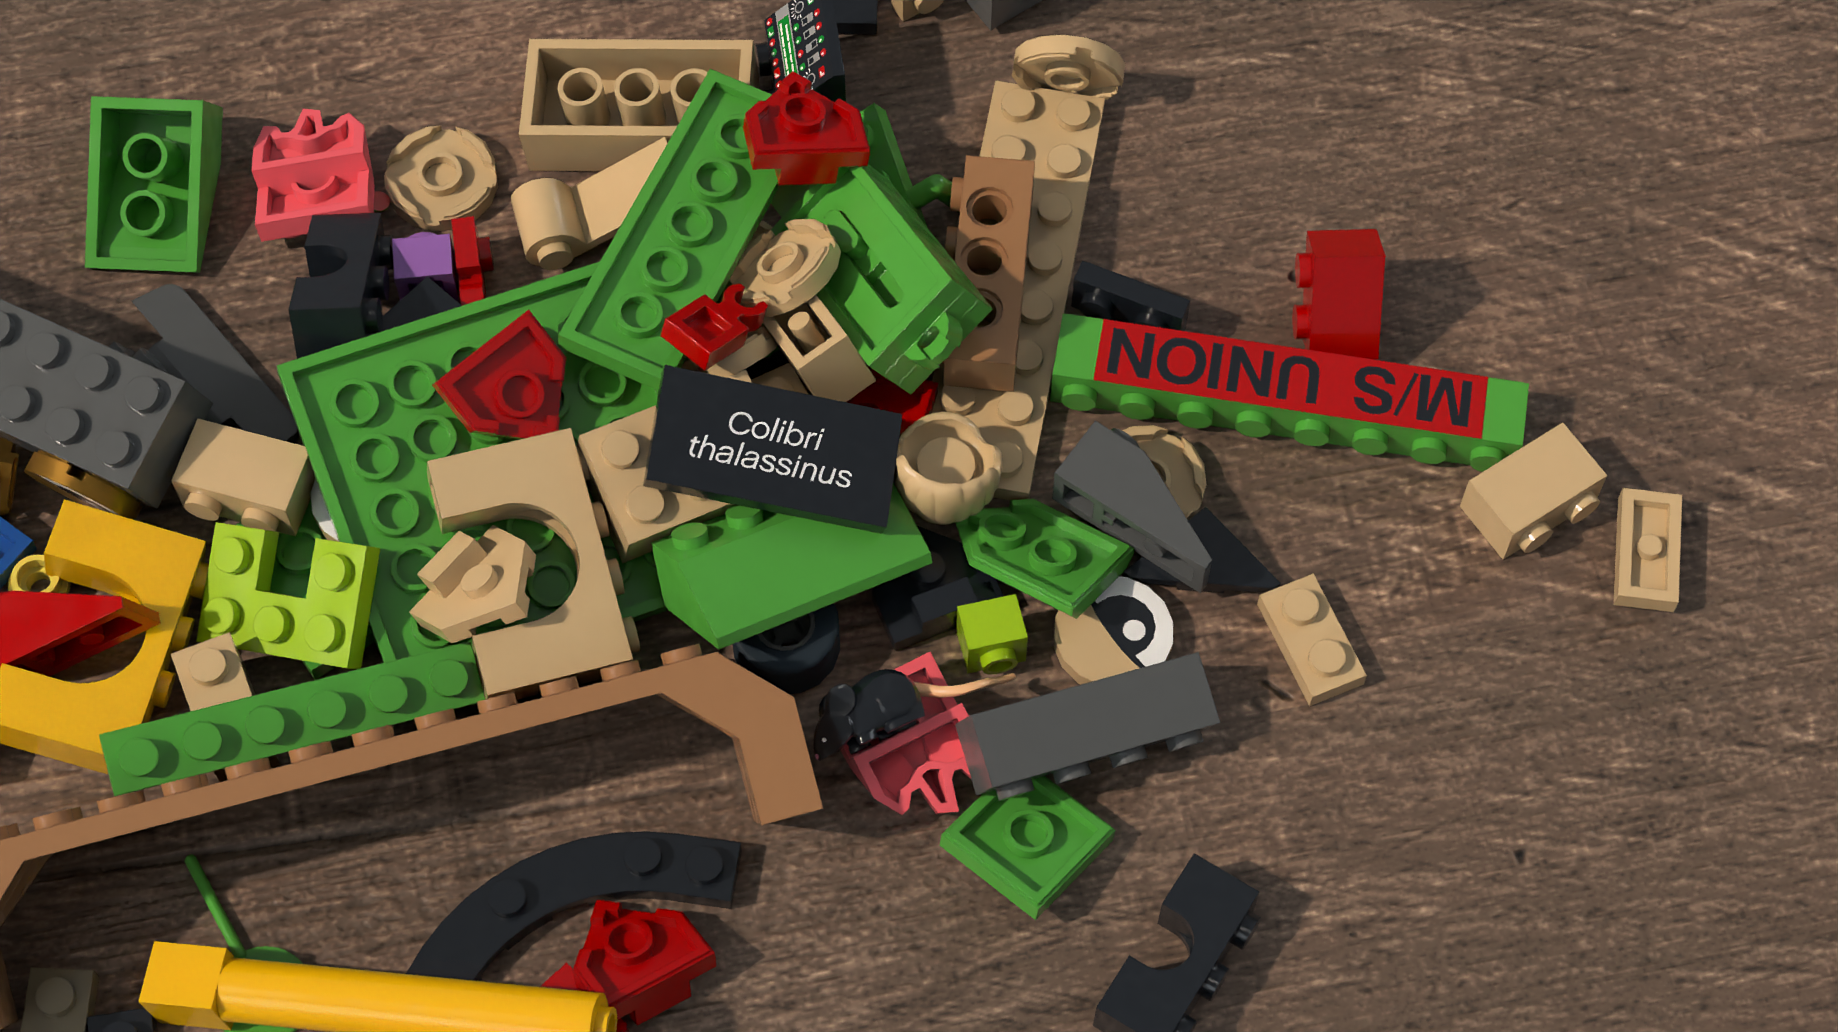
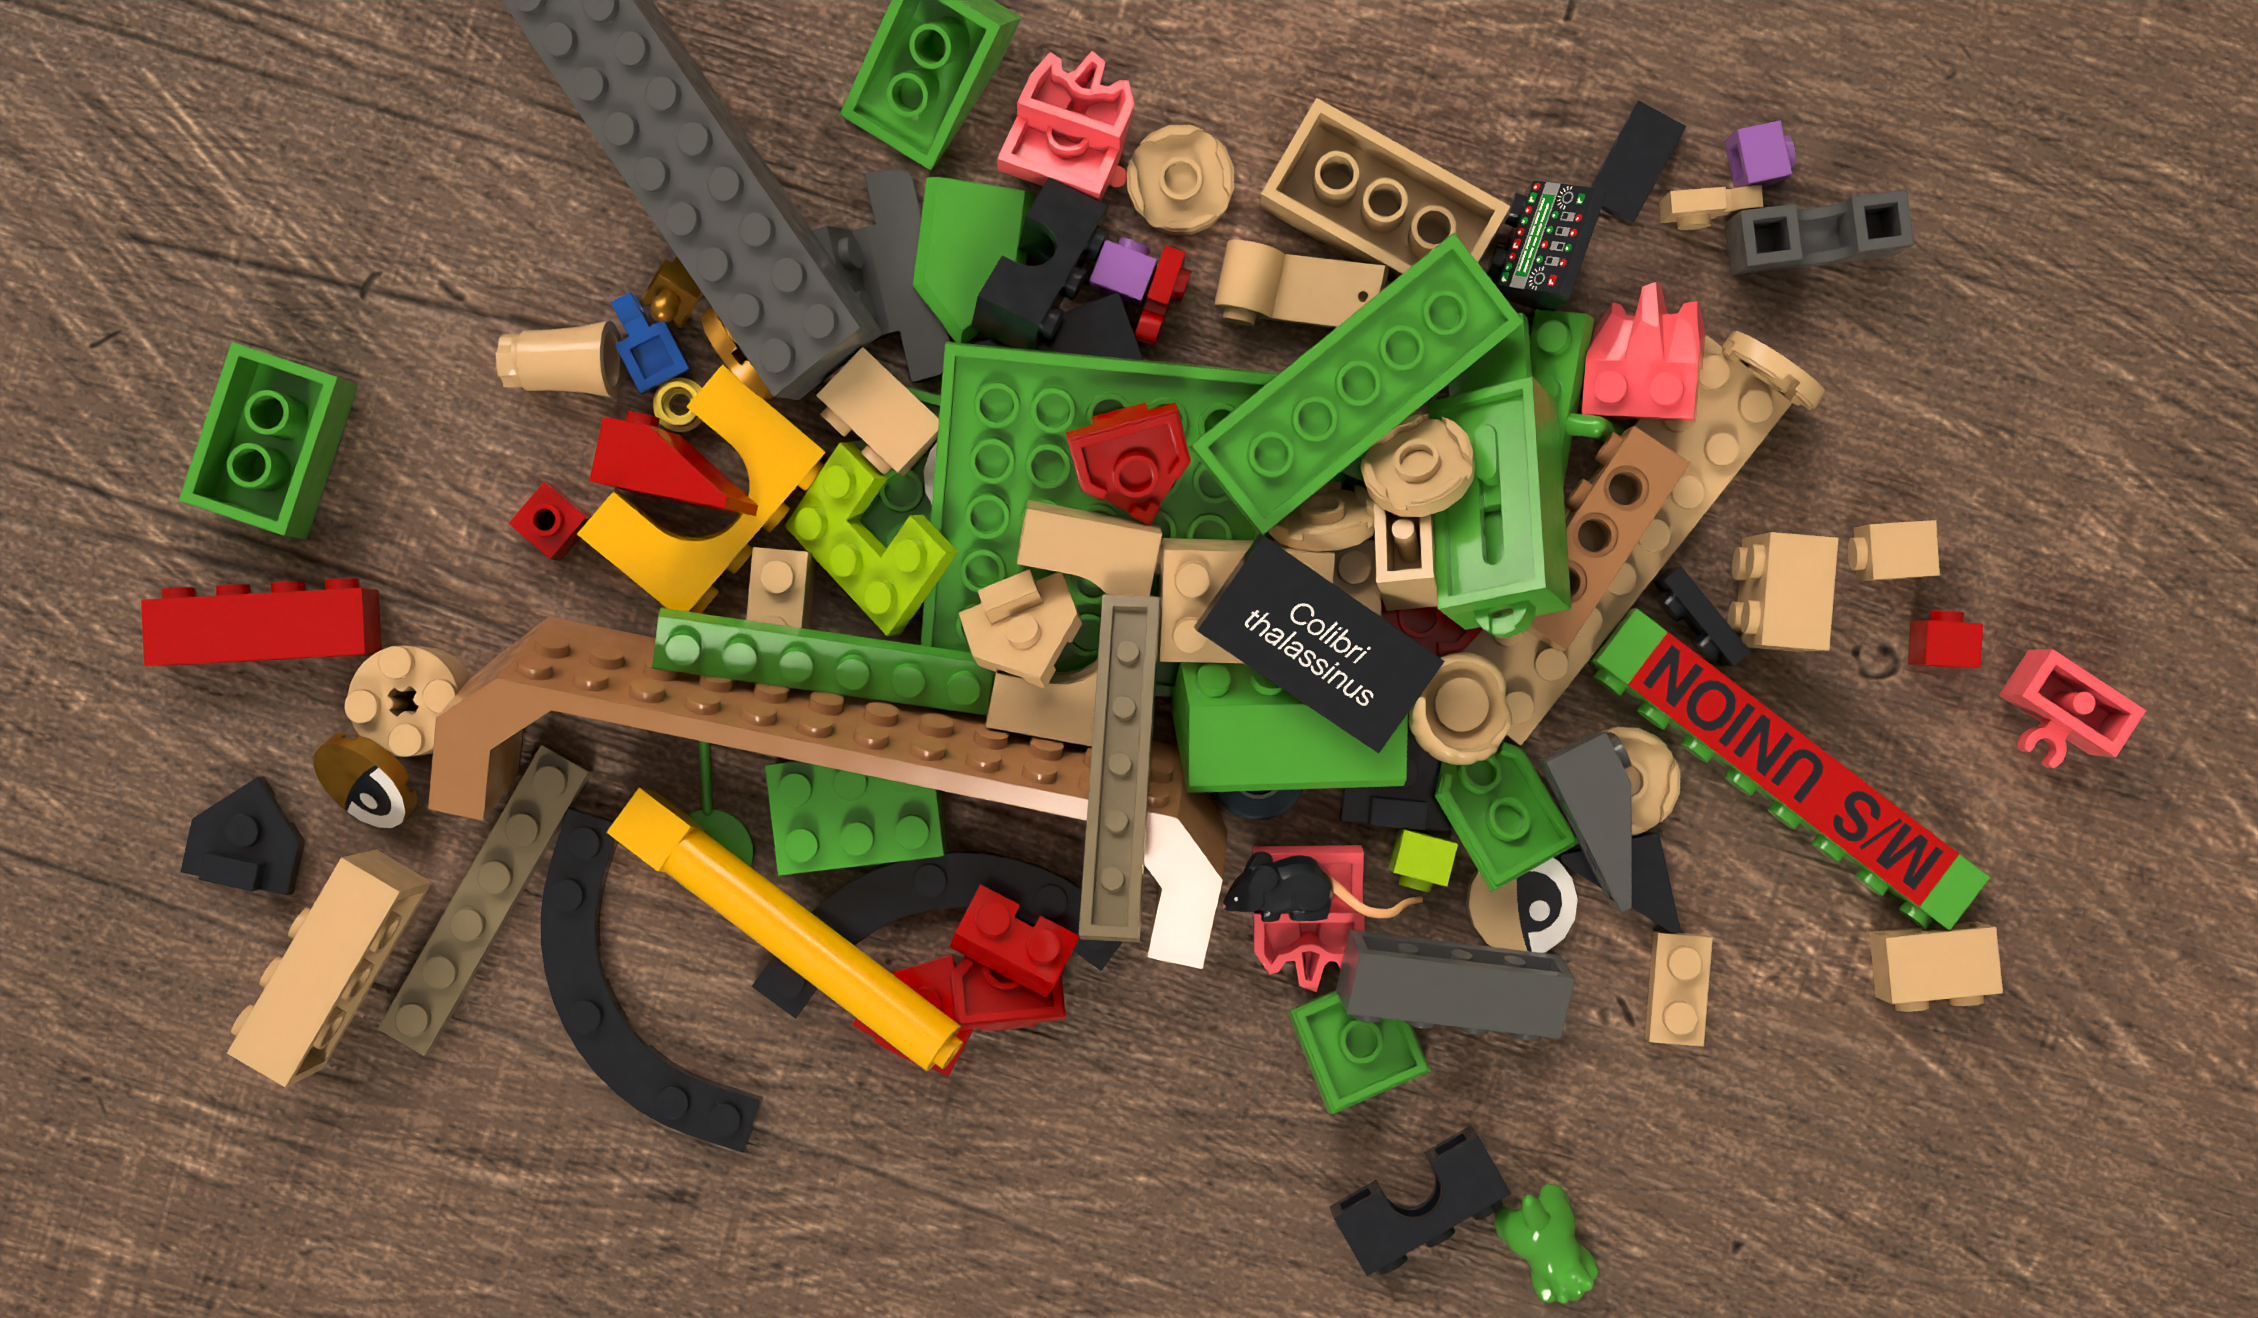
camera: 30 degrees right, 25 degrees up
(250, 313) = (960, 243): none -> bright green tile
(396, 861) = (850, 819): none -> bright green brick
(620, 899) = (1010, 946): none -> red brick
(637, 632) = (1120, 769): none -> dark tan plate
(711, 330) = (1324, 509): red plate -> none
(804, 134) = (1501, 349): red plate -> none
(952, 119) = (1646, 361): none -> coral plate
(1190, 235) = (1784, 591): none -> tan brick
(1271, 170) = (1894, 551): none -> tan brick
(1322, 930) = (1547, 1240): none -> bright green animal
(1341, 292) = (1883, 711): red brick -> none
(1368, 209) = (1945, 641): none -> red plate
(1506, 213) = (2069, 707): none -> coral brick
(1648, 550) = (1997, 1059): tan plate -> none

